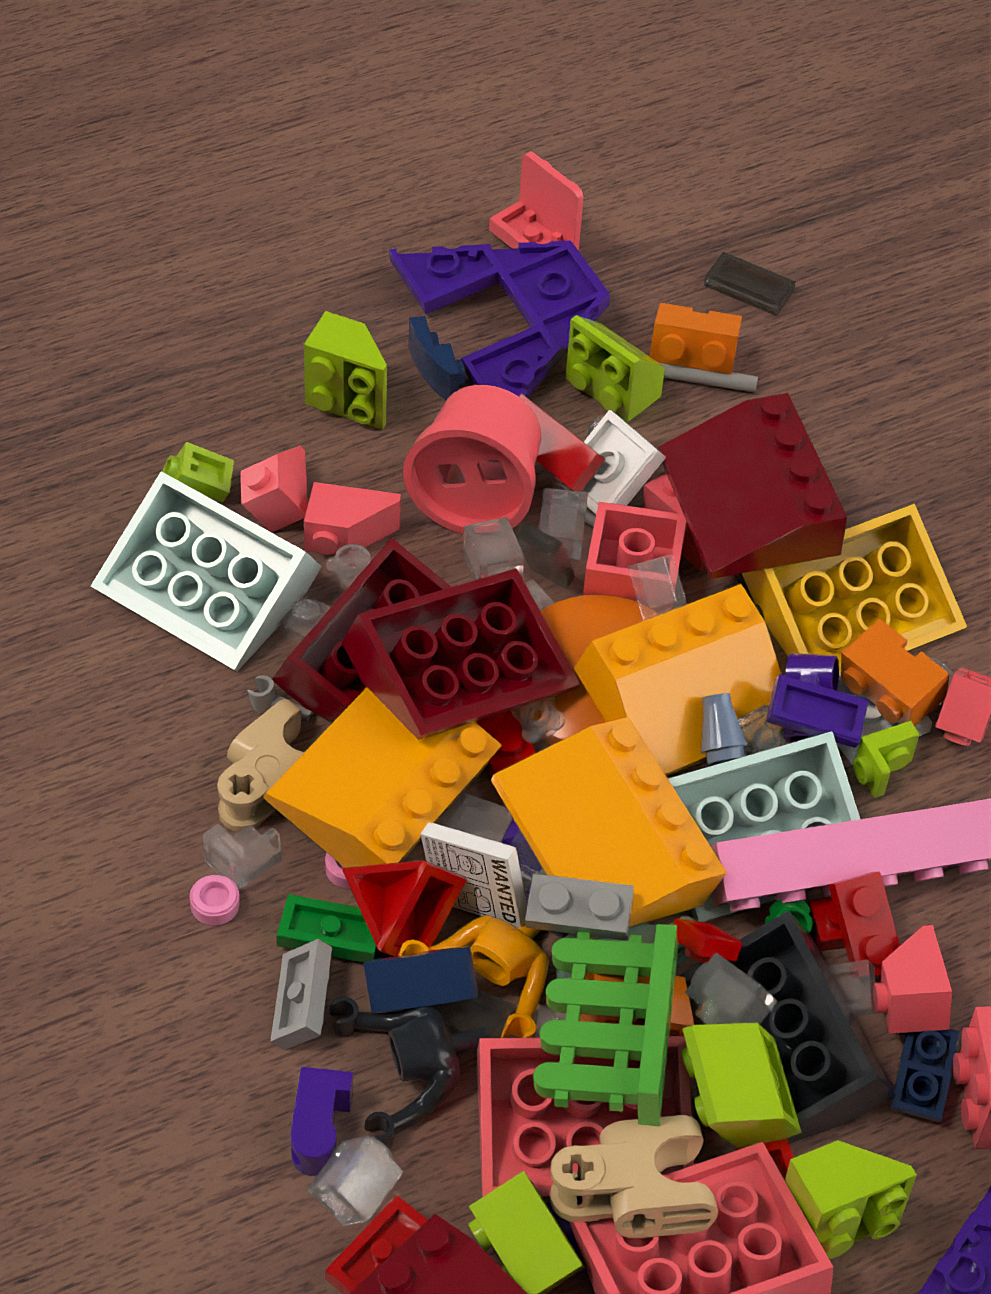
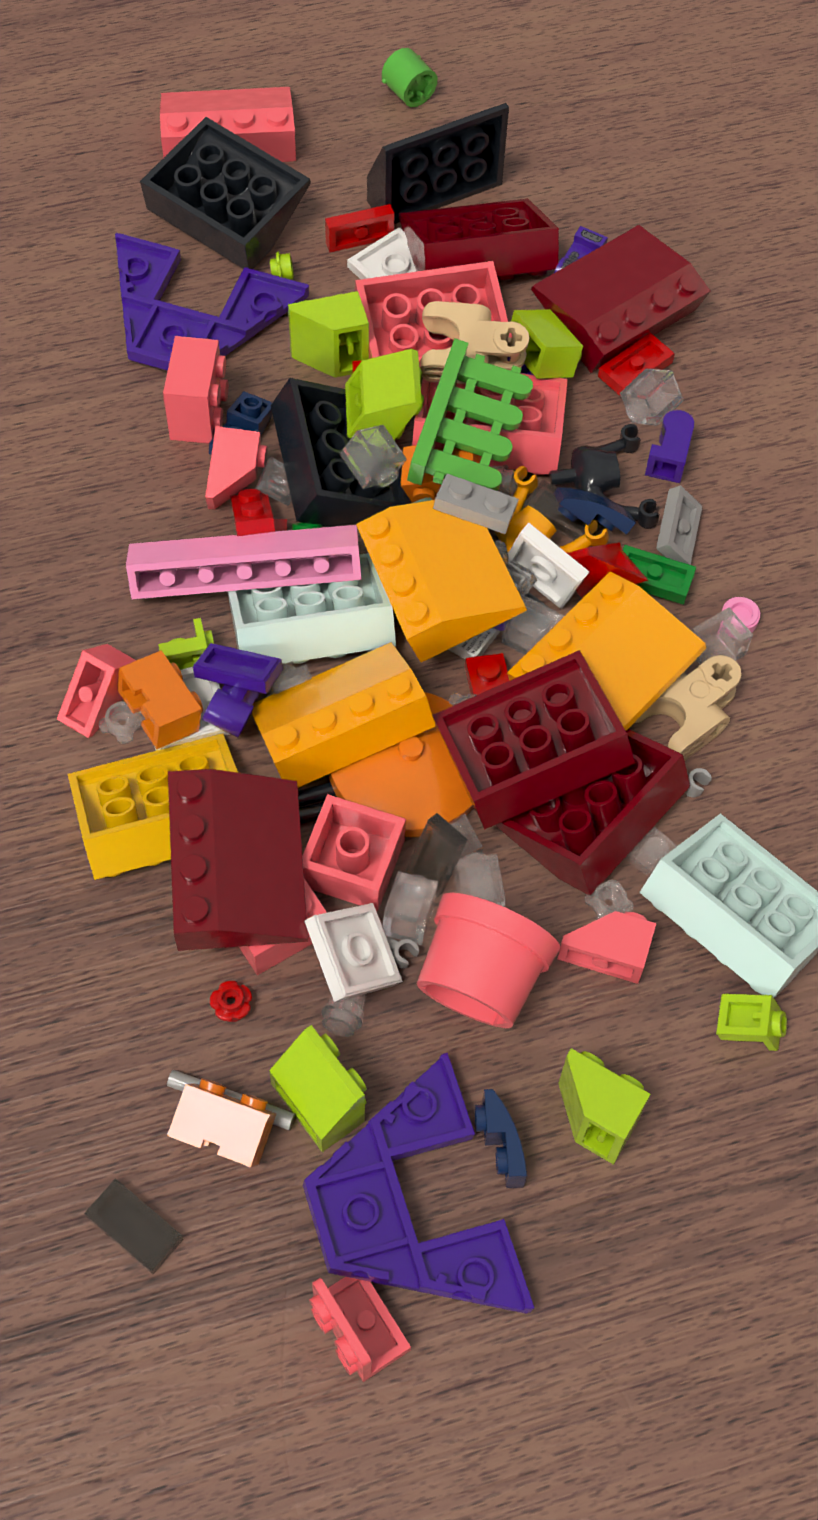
camera: 170 degrees left, 10 degrees up
(276, 489) = (678, 988): coral slope -> none
(564, 452) = (404, 1000): red tile -> none
(657, 586) = (348, 777): clear brick -> none
(705, 940) = (381, 493): red plate -> none
(721, 730) = (323, 658): sand blue cone -> none

